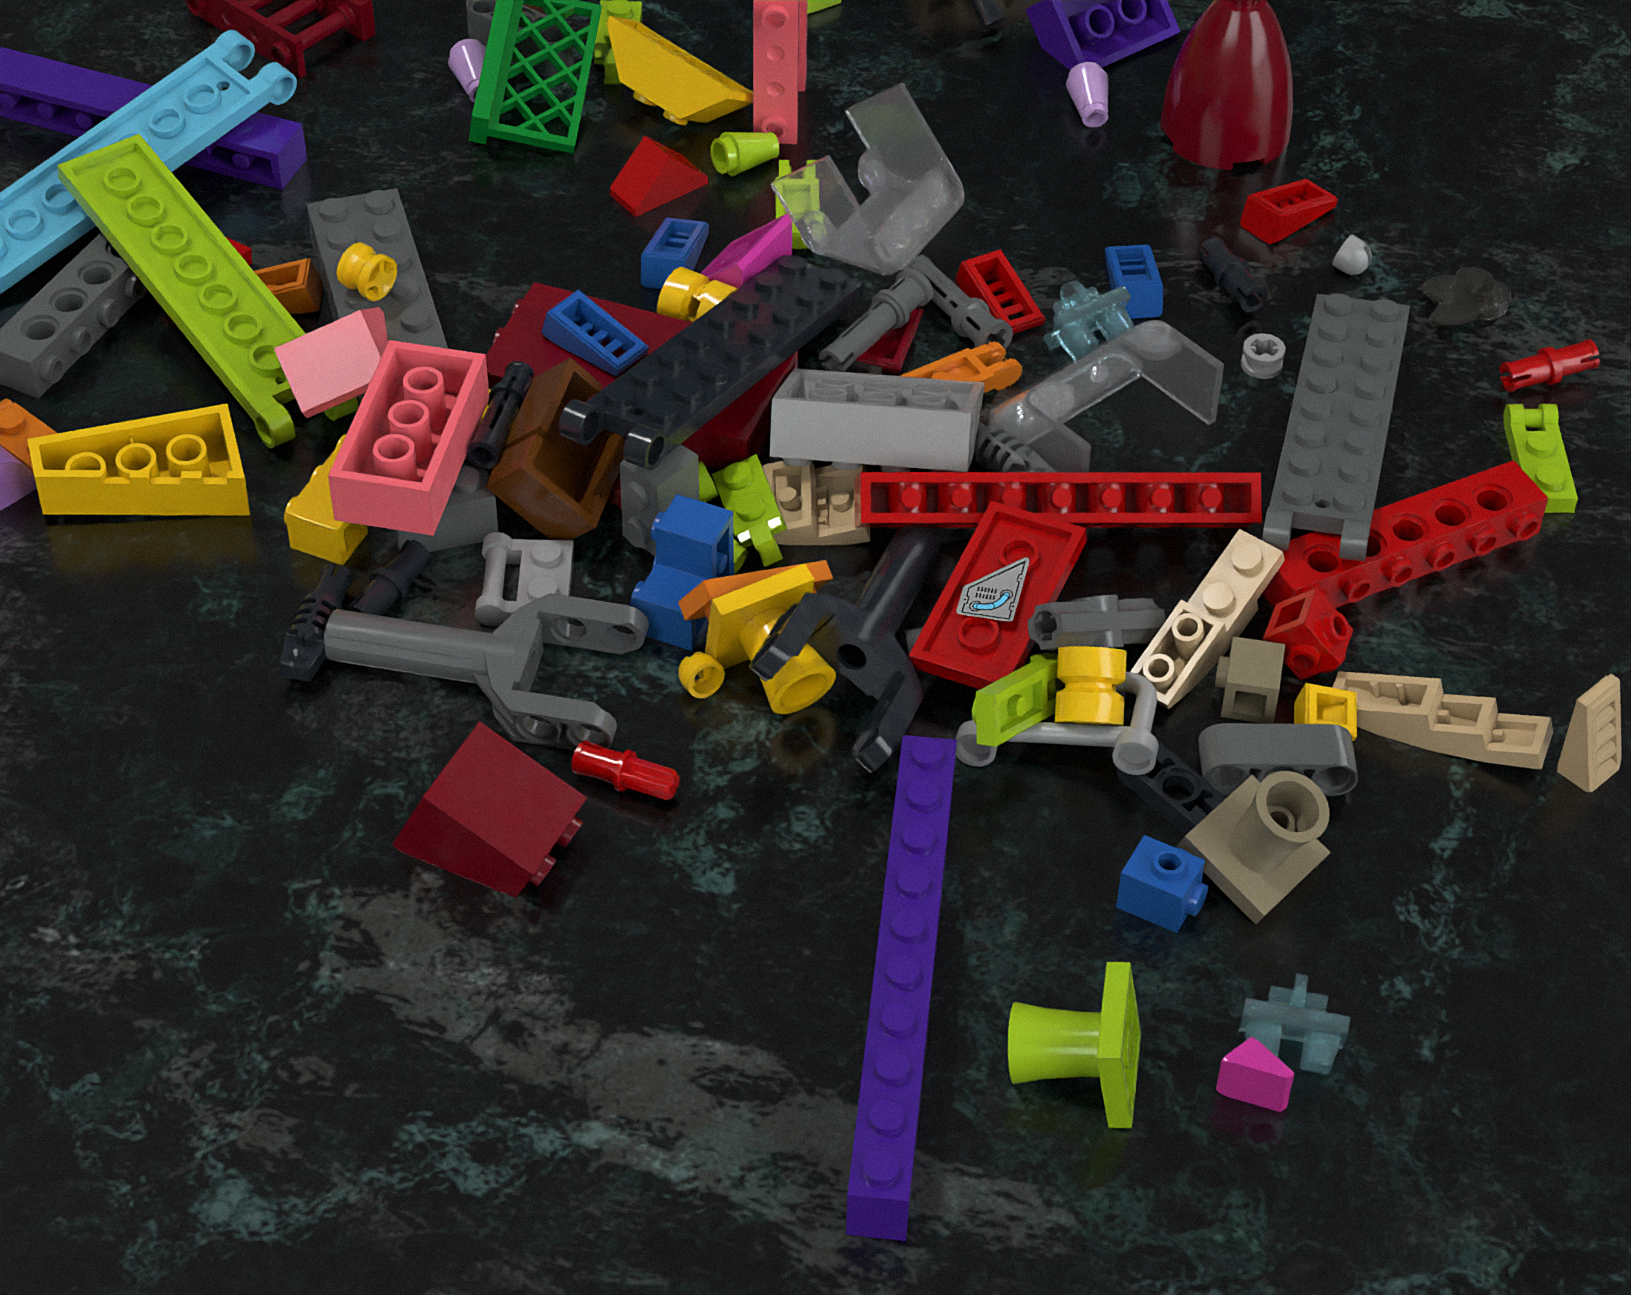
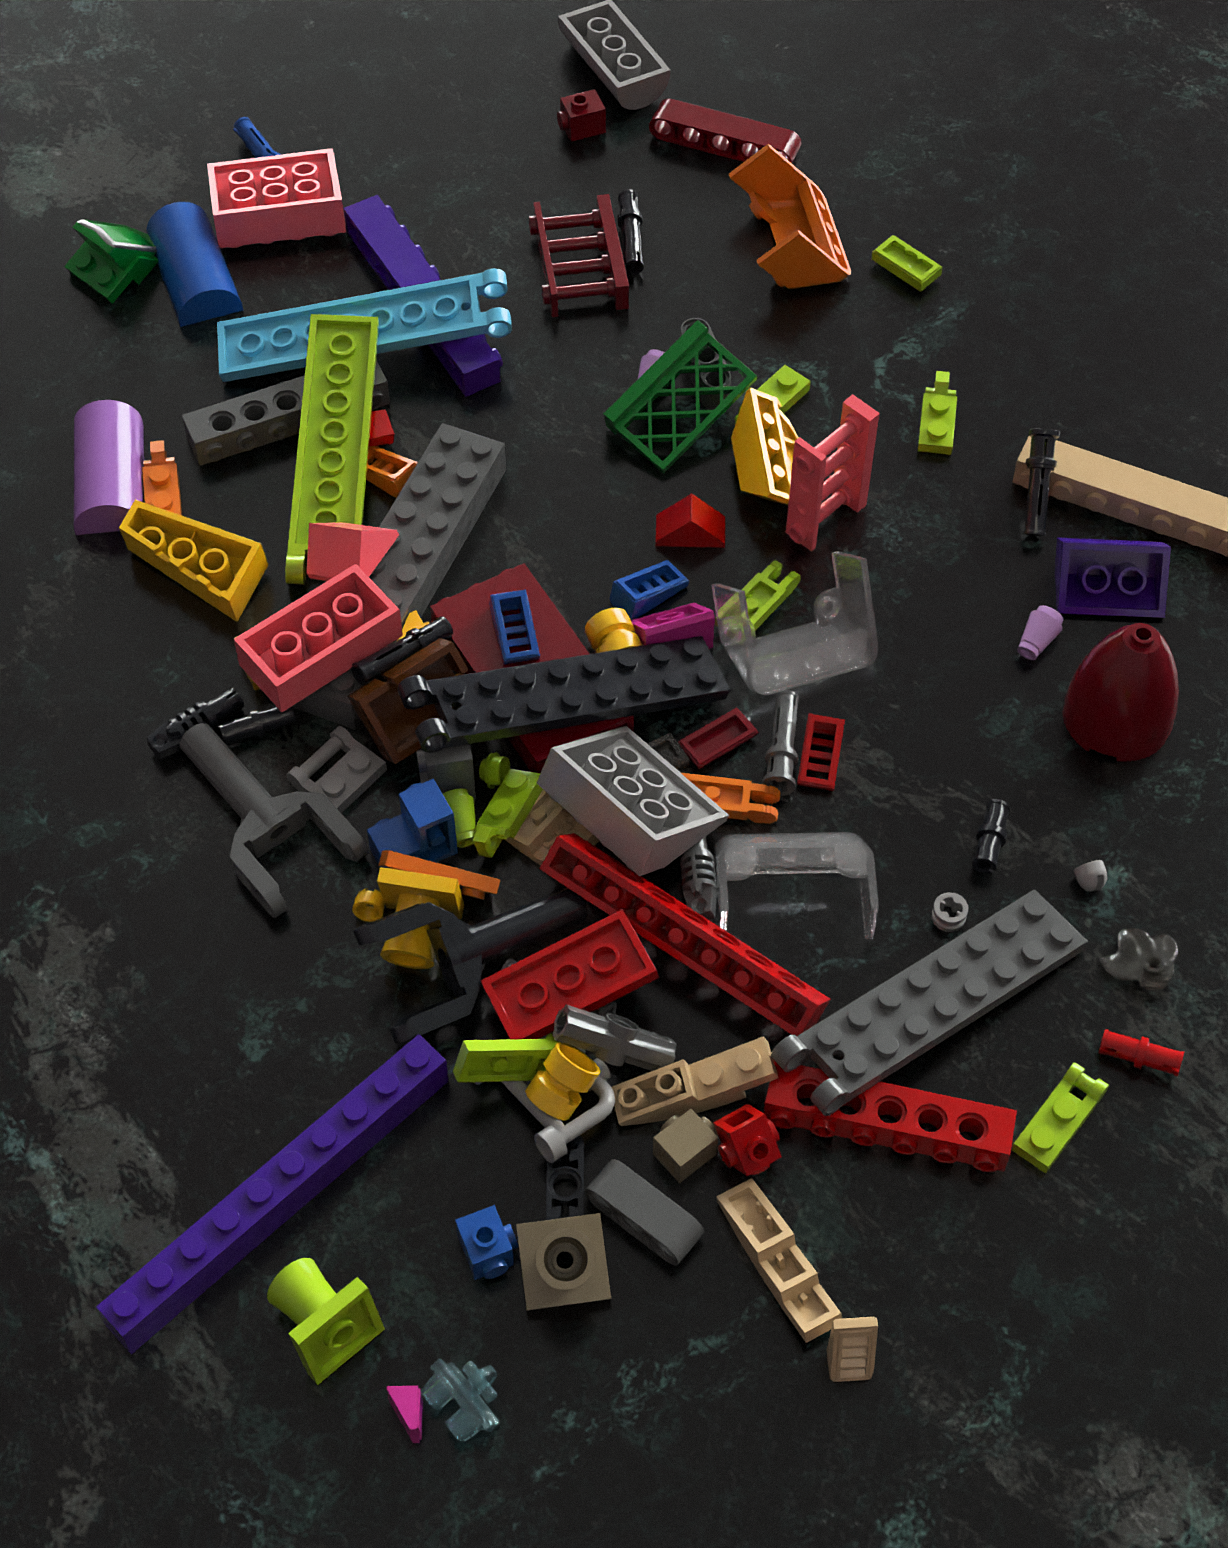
camera: 40 degrees right, 10 degrees up
(366, 271) = (413, 499): yellow wheel -> none
(493, 816) = (160, 920): dark red slope -> none
(624, 770) = (265, 940): red axle -> none
(742, 151) = (762, 538): lime cone -> none
(888, 311) = (722, 721): dark grey pin -> none
(994, 594) = (562, 976): light grey sticker -> none
(1085, 311) = (871, 811): clear light blue hips -> none
(1138, 272) = (910, 813): blue slope -> none
(1281, 210) = (1066, 813): red slope -> none
(1326, 706) = (707, 1203): yellow slope -> none

